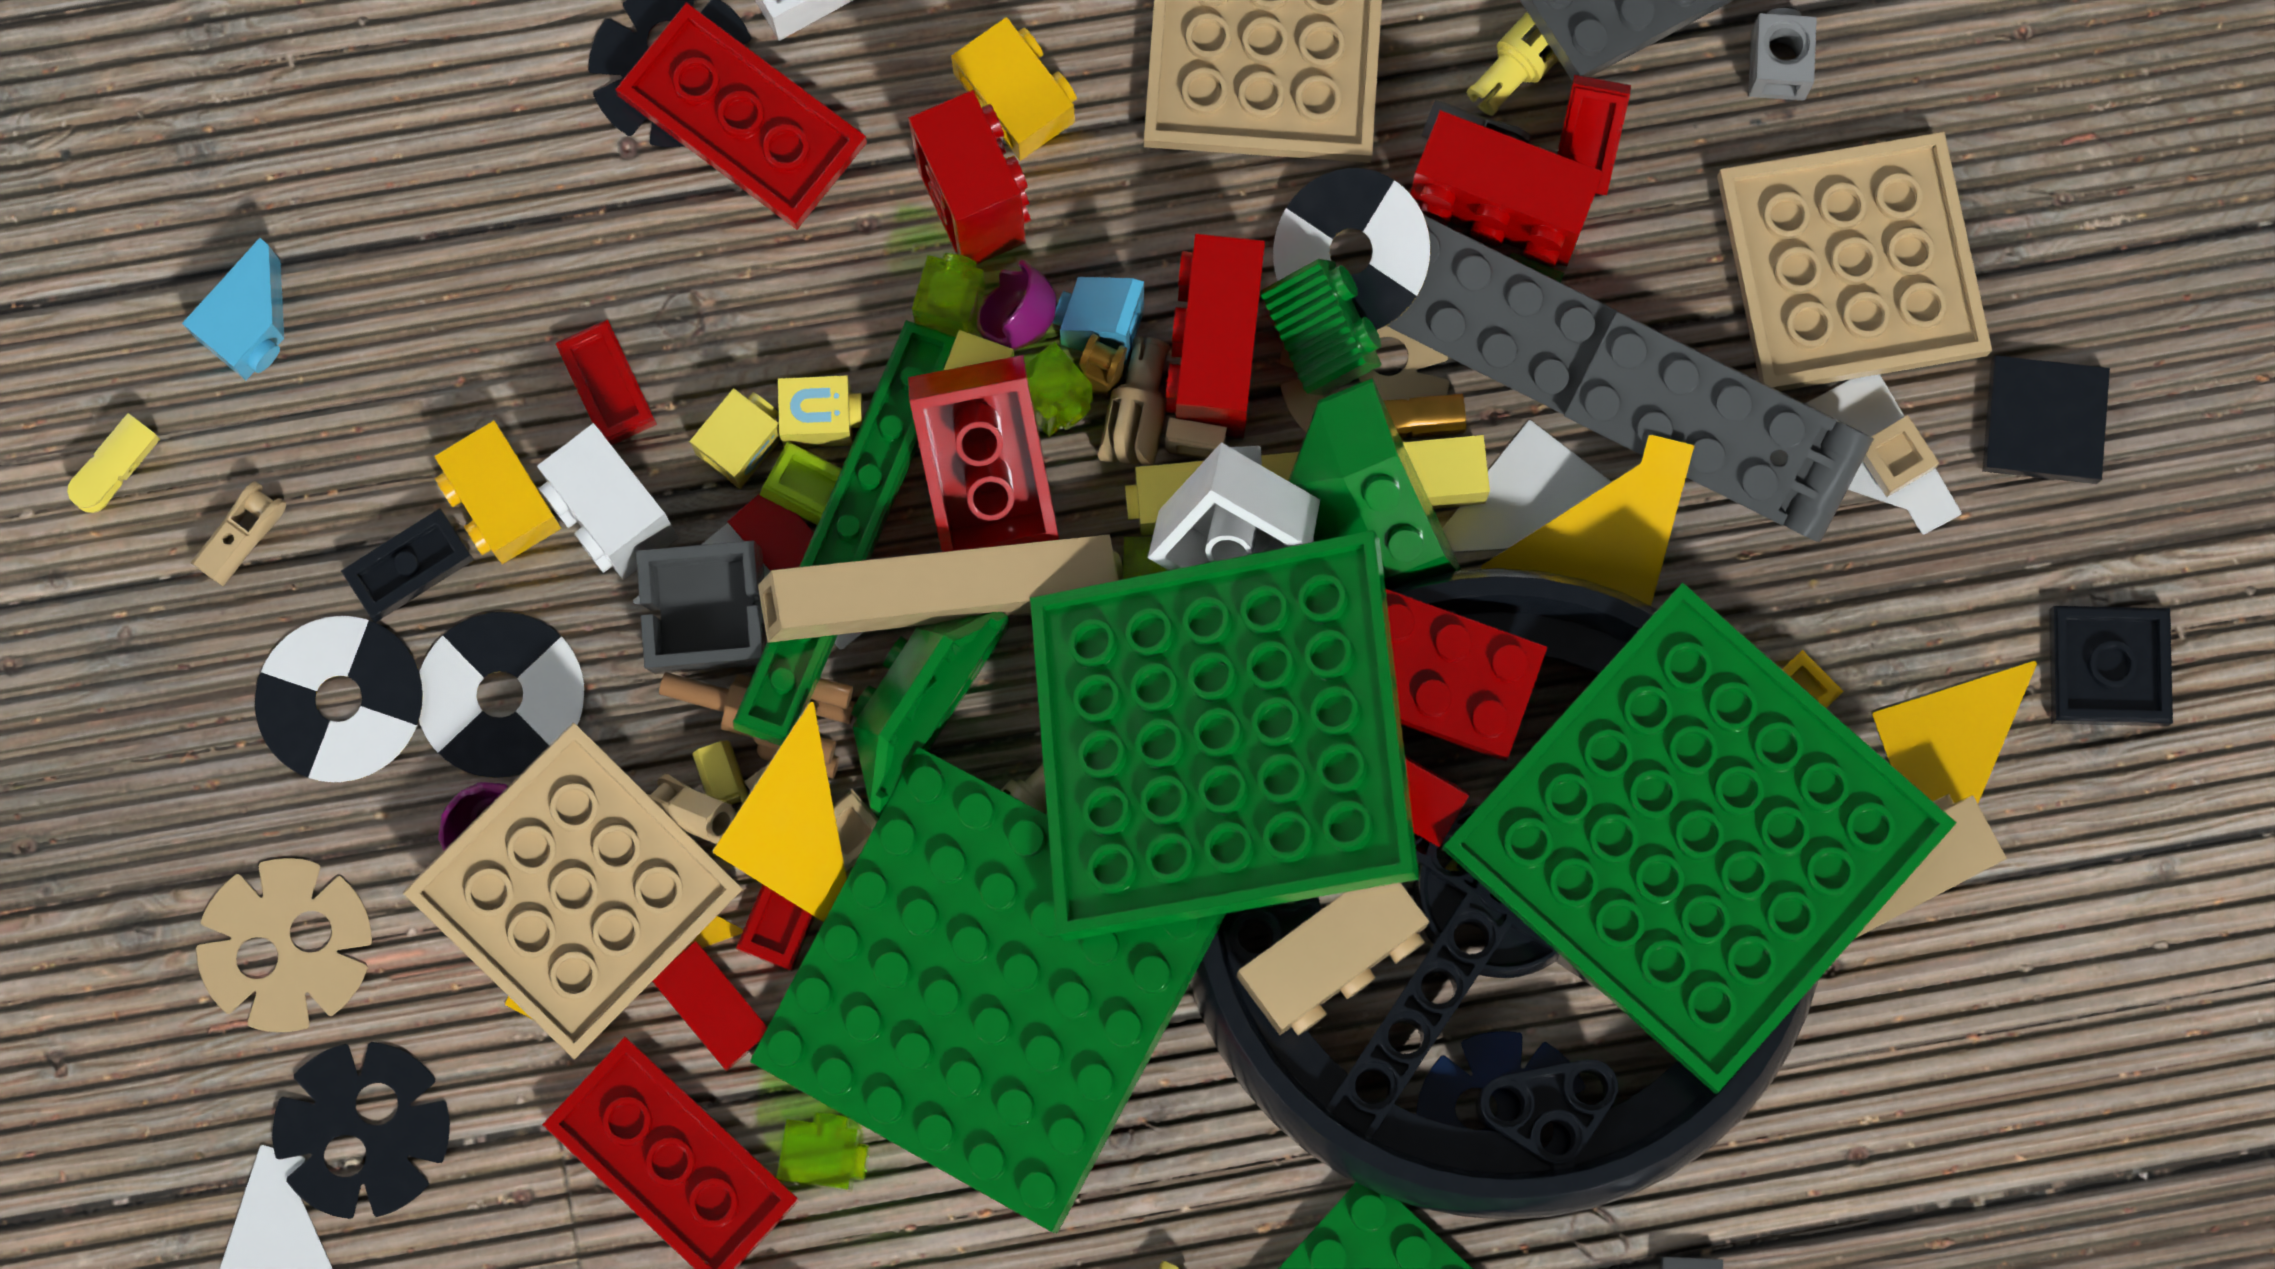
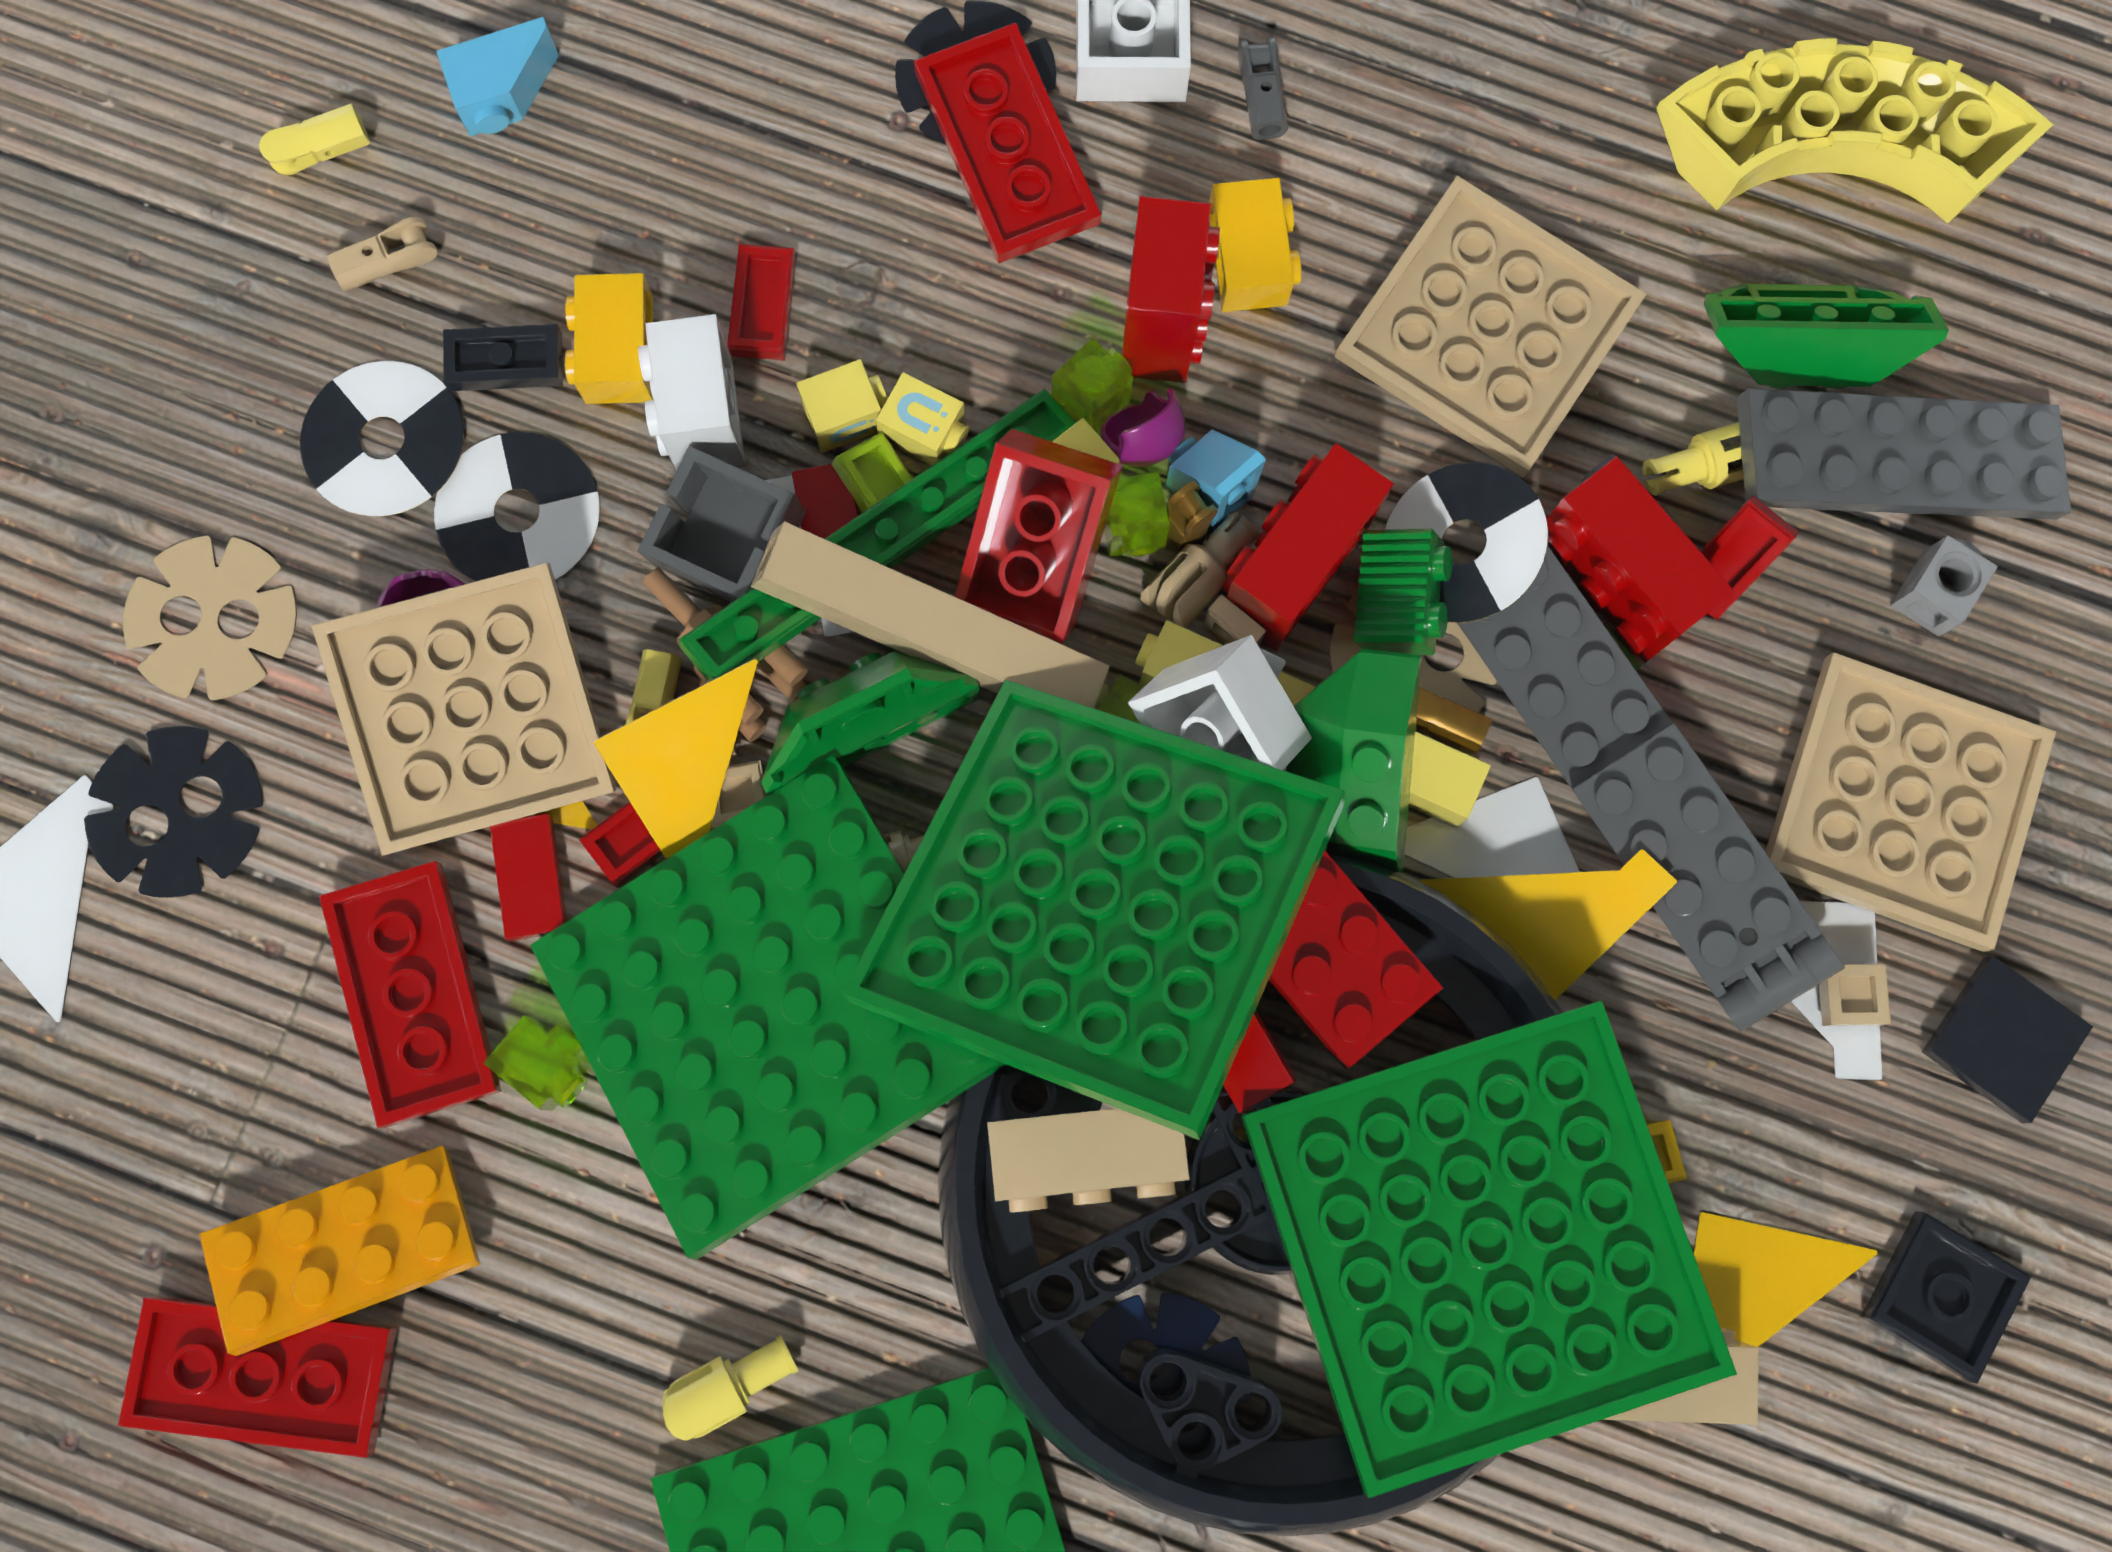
camera: 25 degrees right, 0 degrees up
(692, 809) = (607, 695): tan bar -> none

